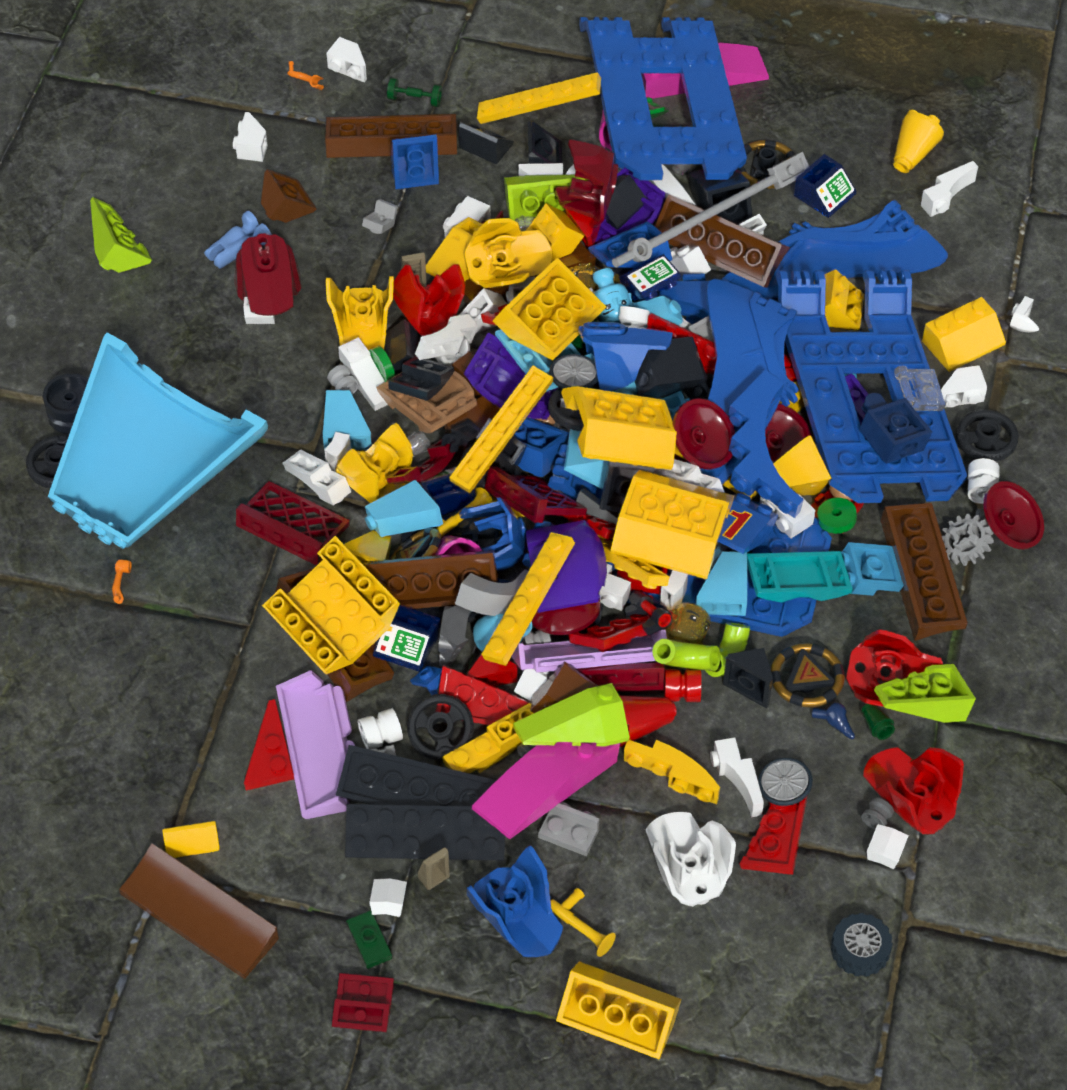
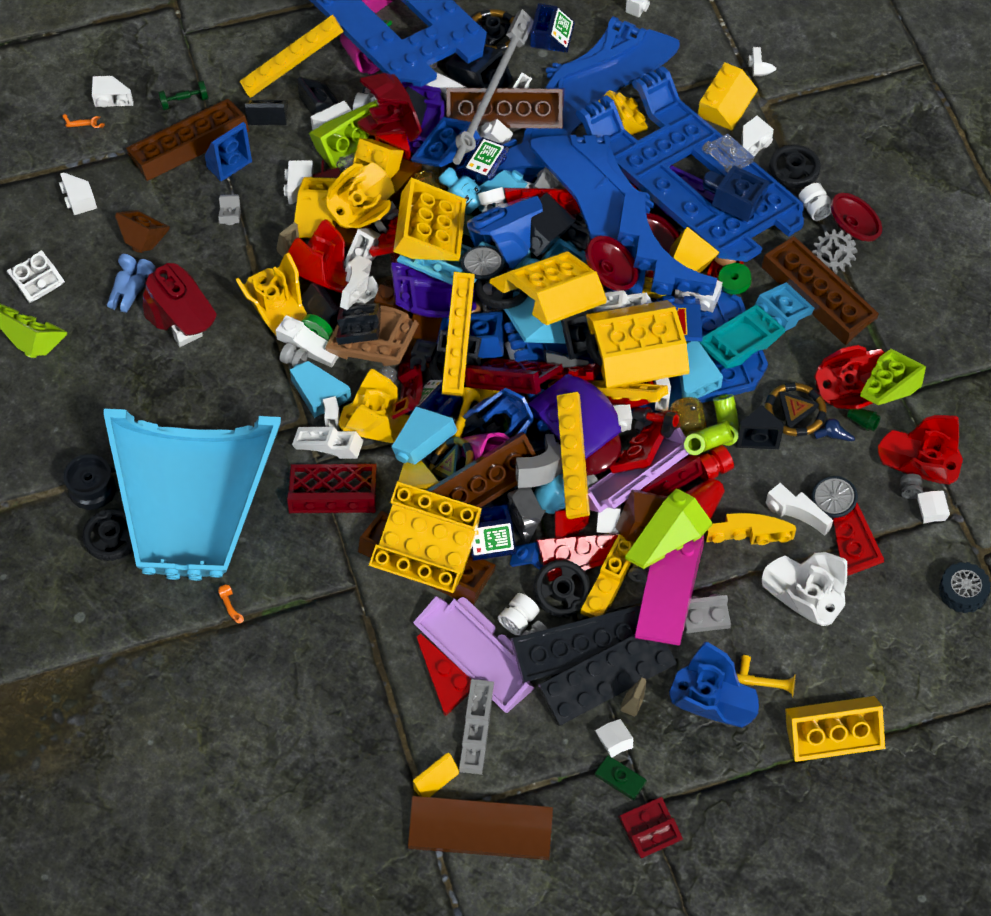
camera: 30 degrees left, 5 degrees up
(158, 196) = (36, 277): none -> white slope
(264, 815) = (476, 726): none -> light grey slope

